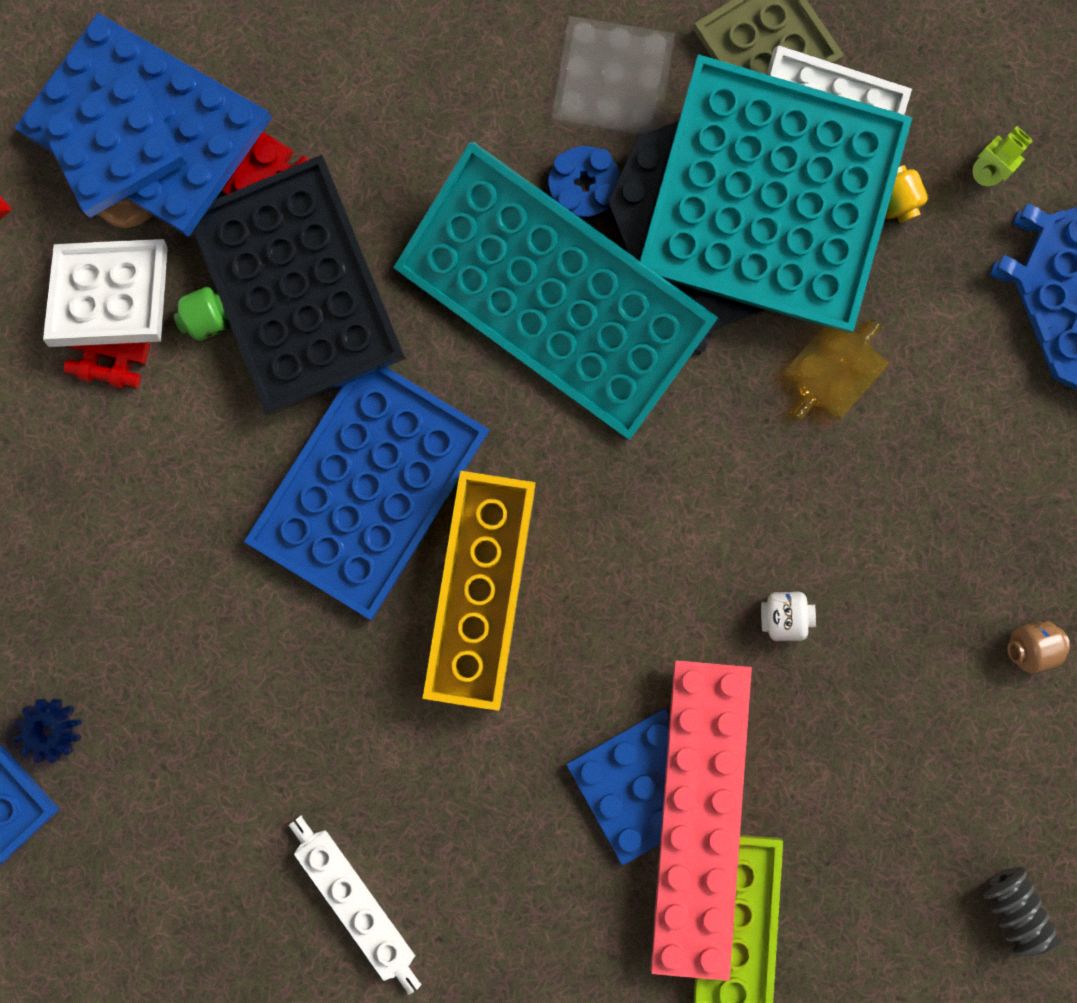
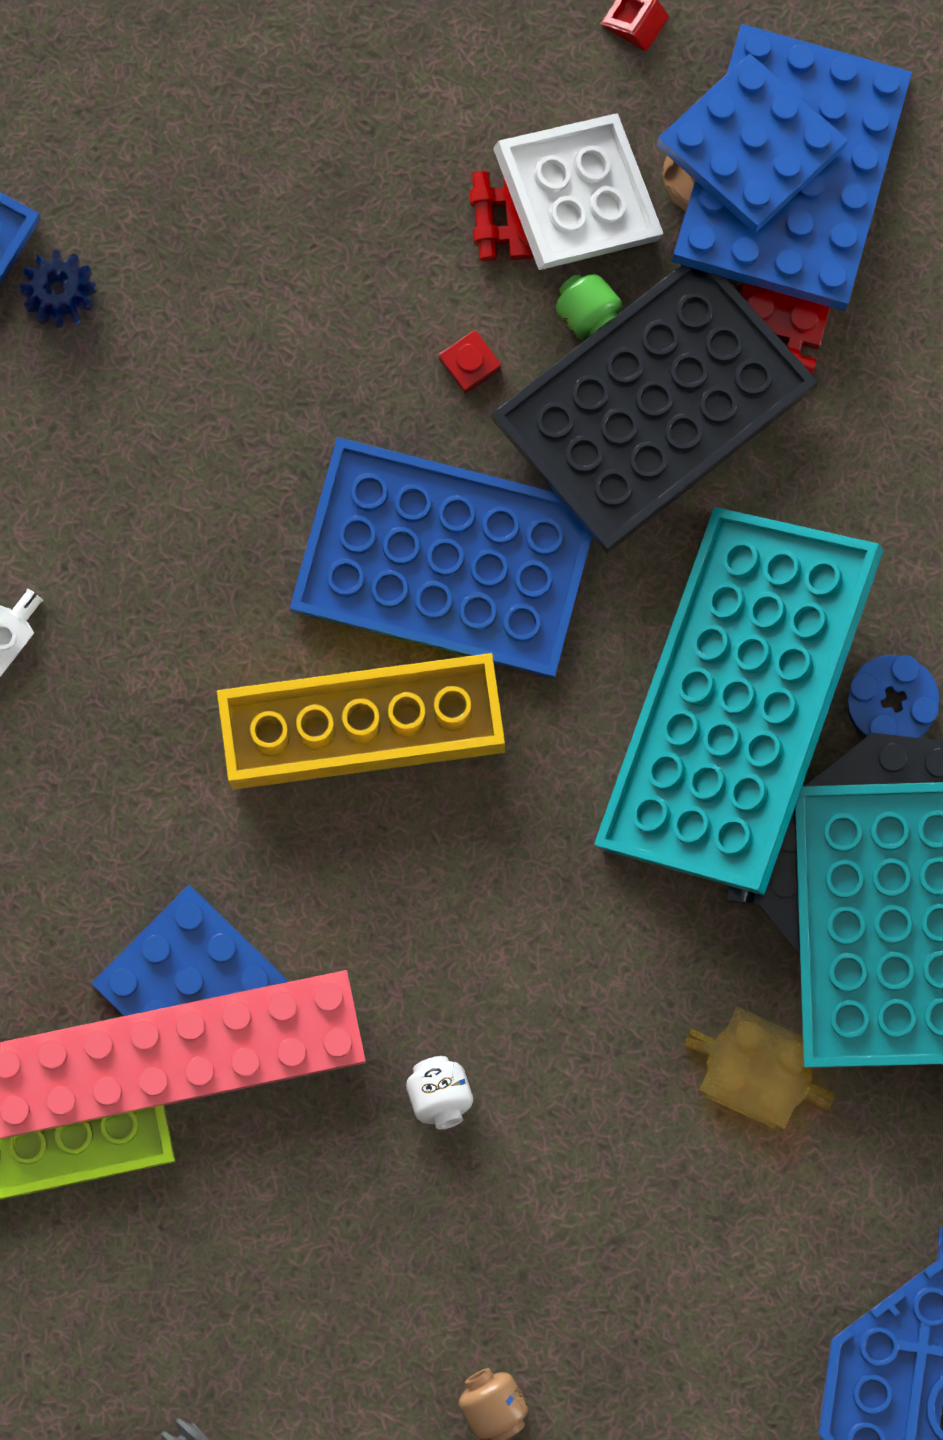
camera: 75 degrees right, 5 degrees down
(216, 420) = (470, 361): none -> red plate

